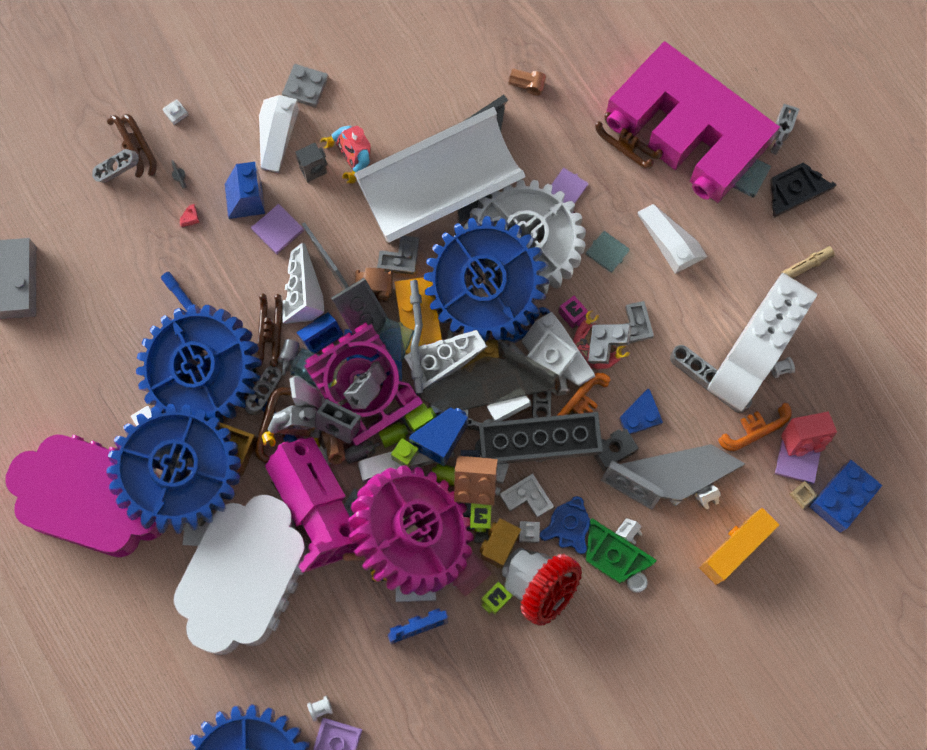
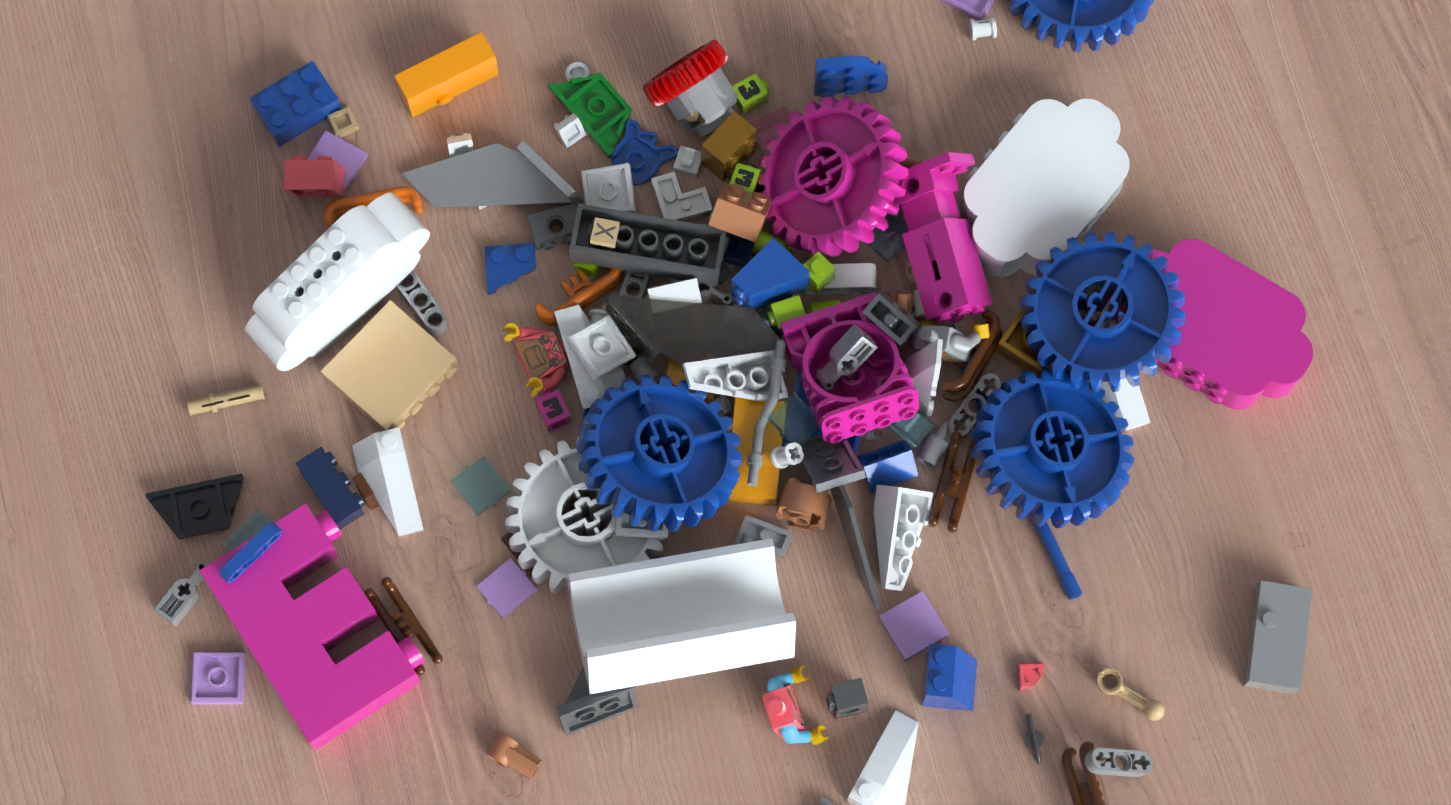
camera: 165 degrees left, 0 degrees up
(97, 211) = (1152, 709): none -> tan piece
(393, 311) = (783, 456): none -> white bush
(574, 430) = (604, 232): none -> tan tile
(583, 488) = (609, 187): none -> white tile
(603, 337) = (527, 353): light grey plate -> none
(639, 322) = (477, 369): light grey plate -> none
(686, 217) = (365, 491): none -> reddish brown tile
(700, 312) = (390, 368): none -> tan brick
(711, 220) = (331, 487): none -> dark blue brick
(741, 82) = (218, 678): none -> lavender tile
(749, 141) = (250, 553): none -> blue beam

